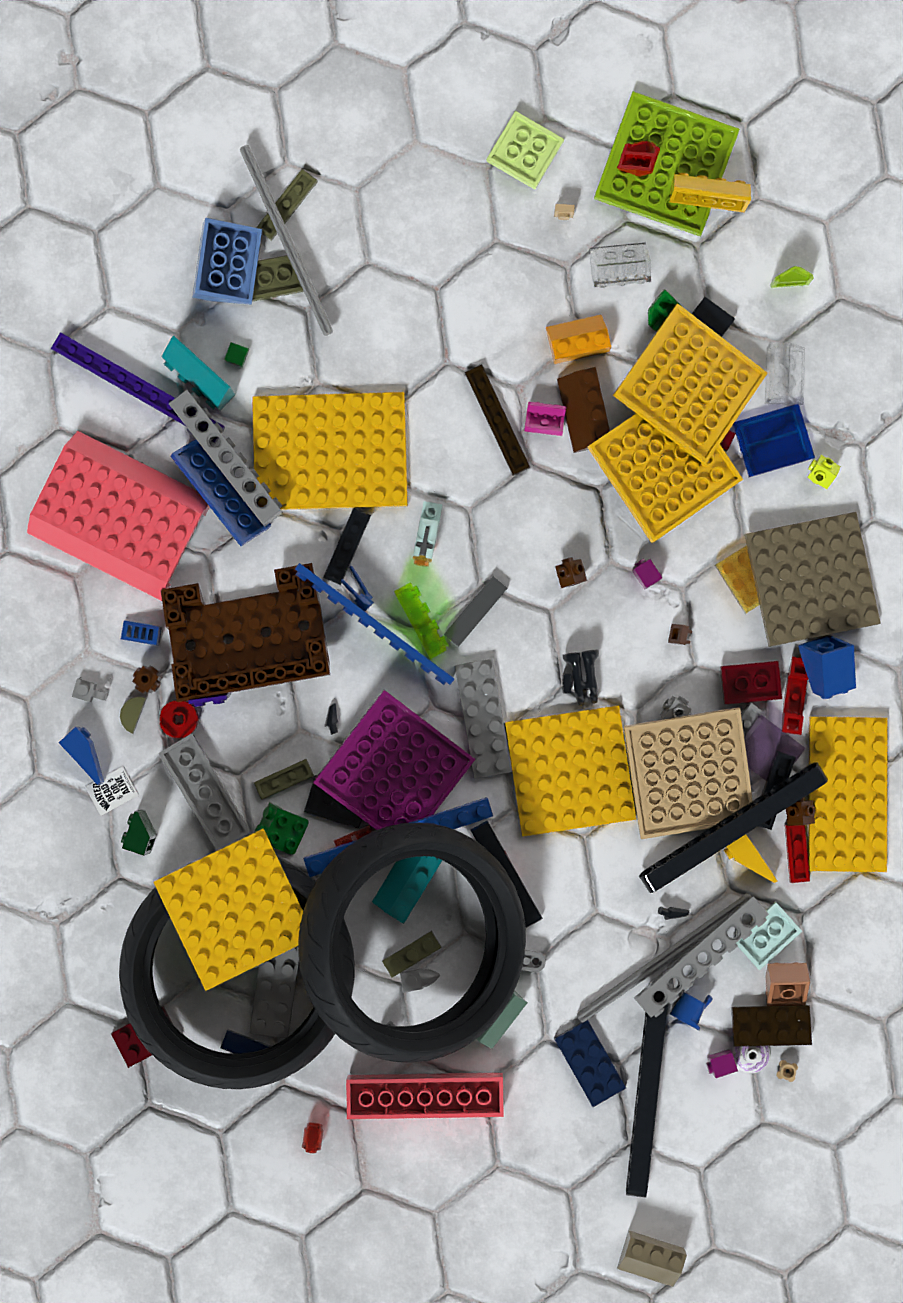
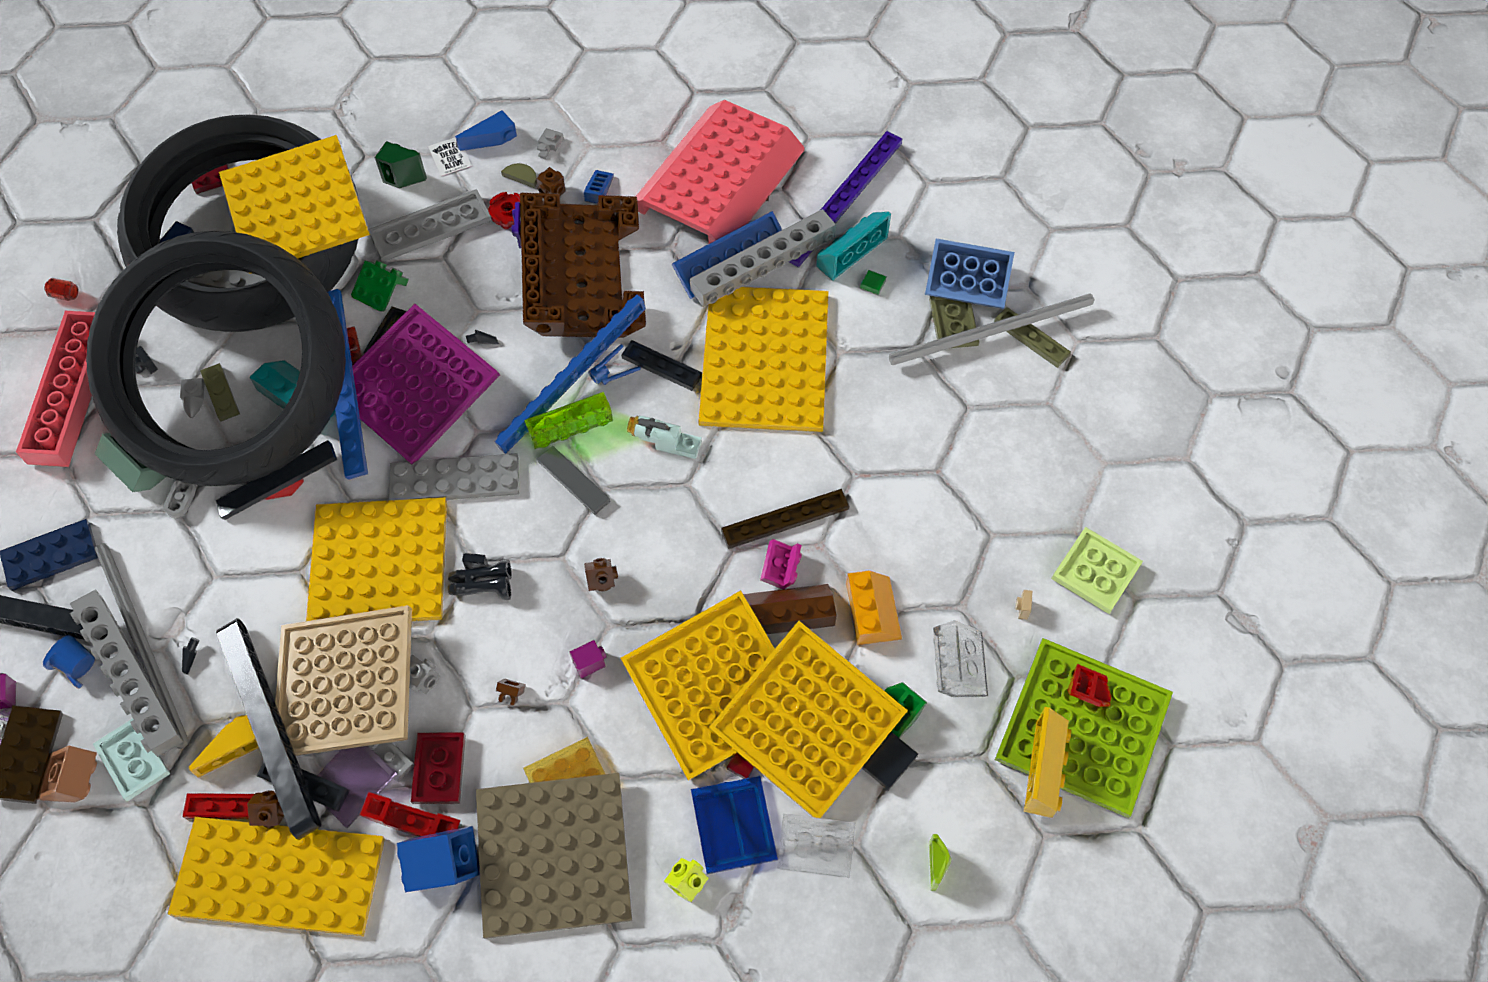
camera: 85 degrees right, 25 degrees down
(283, 779) = (429, 292): olive tile -> none

